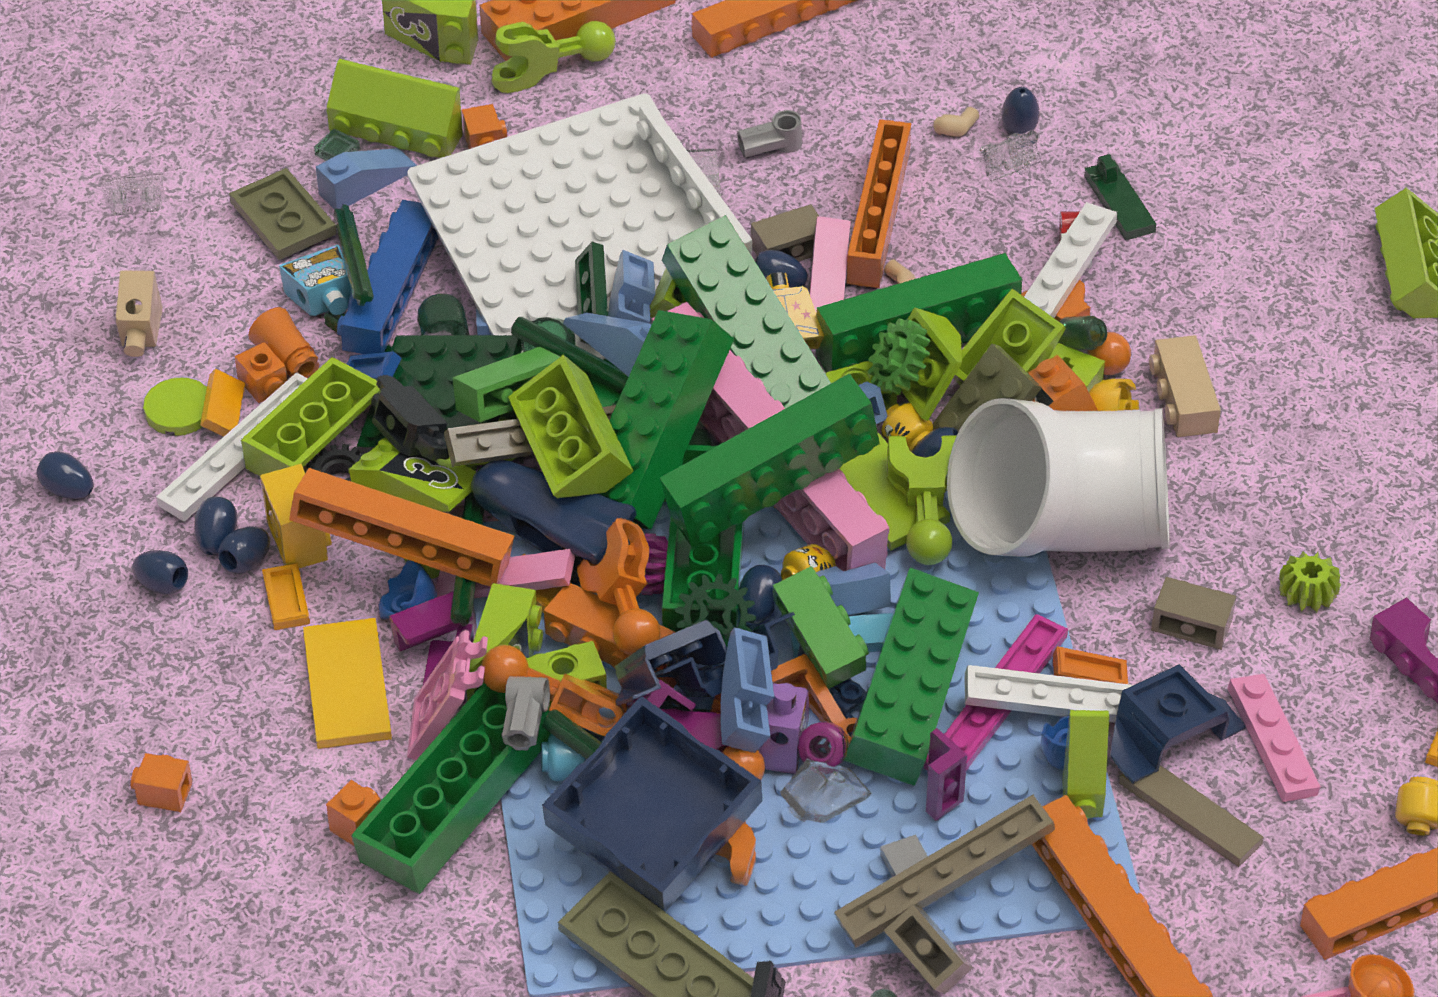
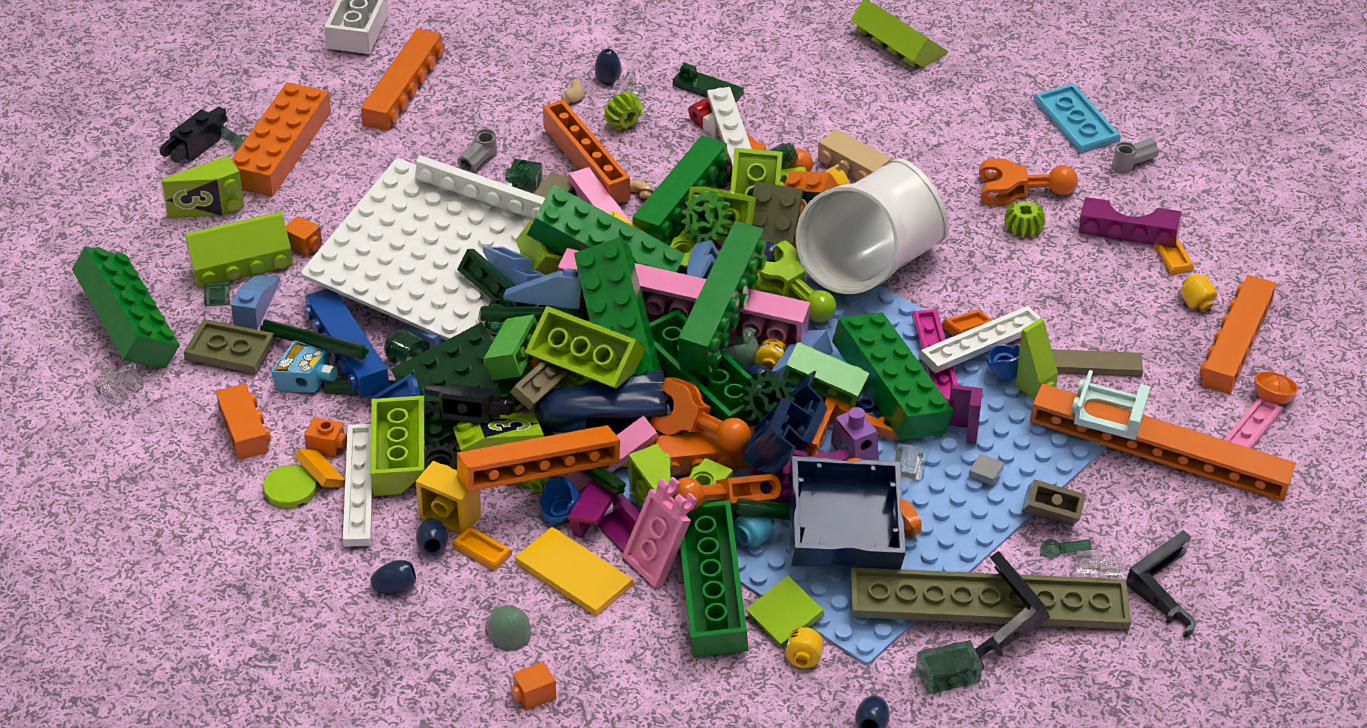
camera: 40 degrees left, 5 degrees down
(64, 475) = (269, 561): dark blue animal -> none
(138, 324) = (209, 445): tan torso -> none
(203, 305) = (243, 421): none -> orange brick
(212, 701) = (509, 627): none -> sand green hair
(213, 522) = (397, 533): dark blue animal -> none
(216, 110) = (125, 307): none -> green brick
(285, 340) = (312, 406): orange plant -> none
(350, 809) = (668, 631): orange brick -> none
(475, 930) = (804, 646): none -> yellow head
(501, 875) = (784, 610): none -> lime tile
(524, 702) = (721, 502): light grey piece -> none
(537, 52) = (291, 174): lime piece -> none
(746, 691) = (834, 426): medium blue slope -> none
(773, 545) = (744, 349): none -> sand green hair
(781, 191) = (524, 175): none -> clear green brick
(810, 747) = (889, 435): magenta head -> none
(945, 870) = (1022, 458): dark tan plate -> none
(976, 175) = (623, 111): none -> lime gear
(1103, 838) = (1094, 392): none -> light aqua panel
(1163, 714) = (1033, 306): dark blue piece -> none
(1193, 613) = (986, 266): dark tan brick -> none
(1273, 737) = (1090, 304): bright pink plate -> none
(1353, 526) = (1012, 181): none -> orange piece

